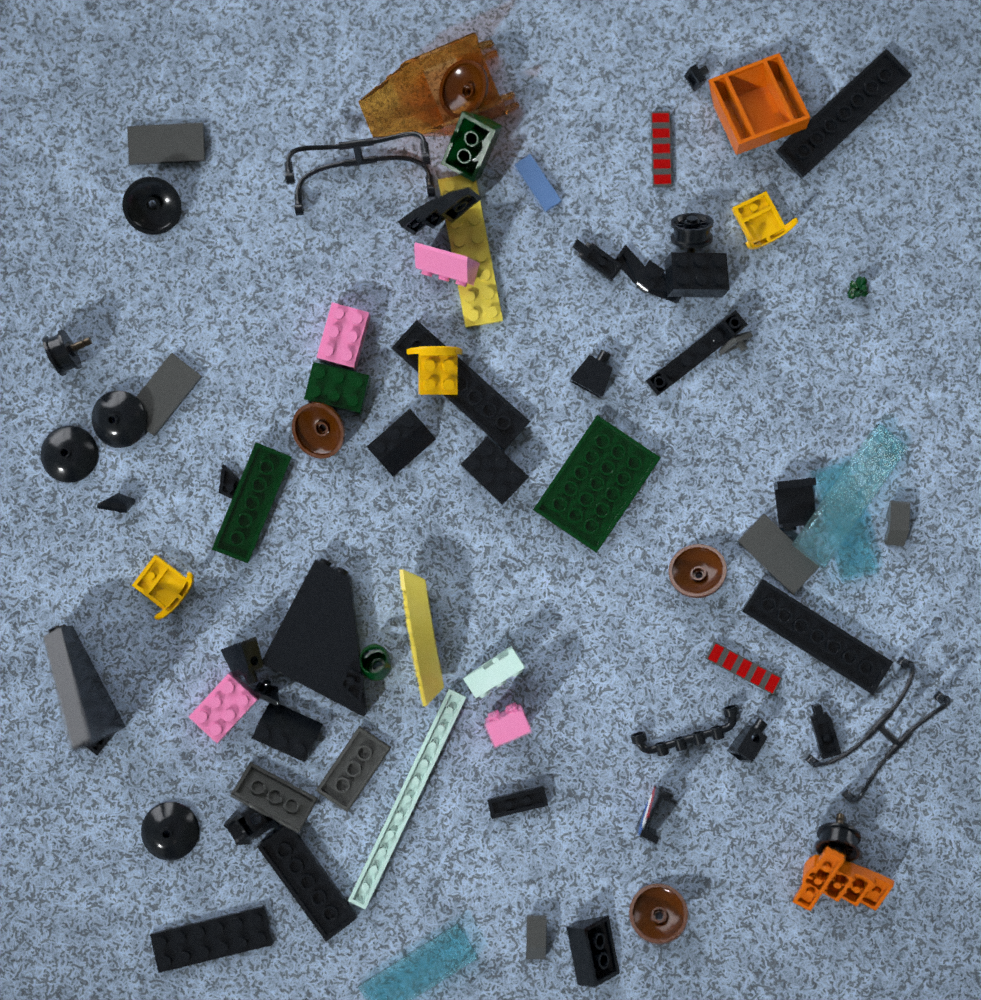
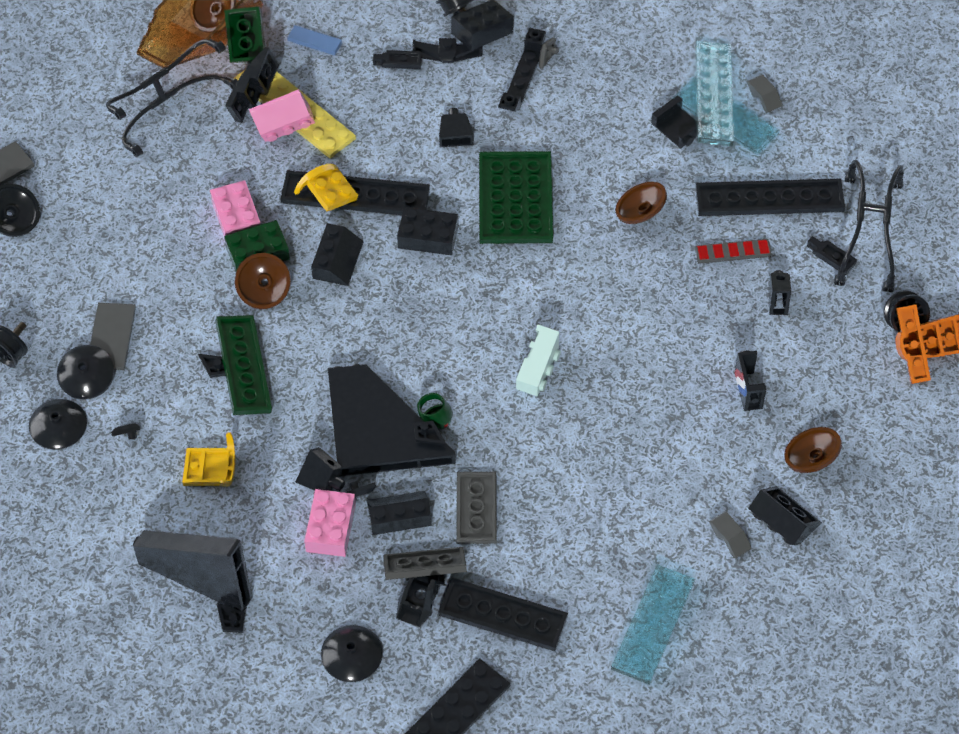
camera: 30 degrees left, 30 degrees down
(407, 799) = (540, 503): light aqua plate -> none
(421, 636) = (460, 367): light yellow brick -> none
(507, 724) = (578, 383): bright pink brick -> none
(517, 802) = (632, 446): black plate -> none
(697, 737) = (728, 327): black bar -> none
(777, 554) = (693, 163): dark grey tile -> none

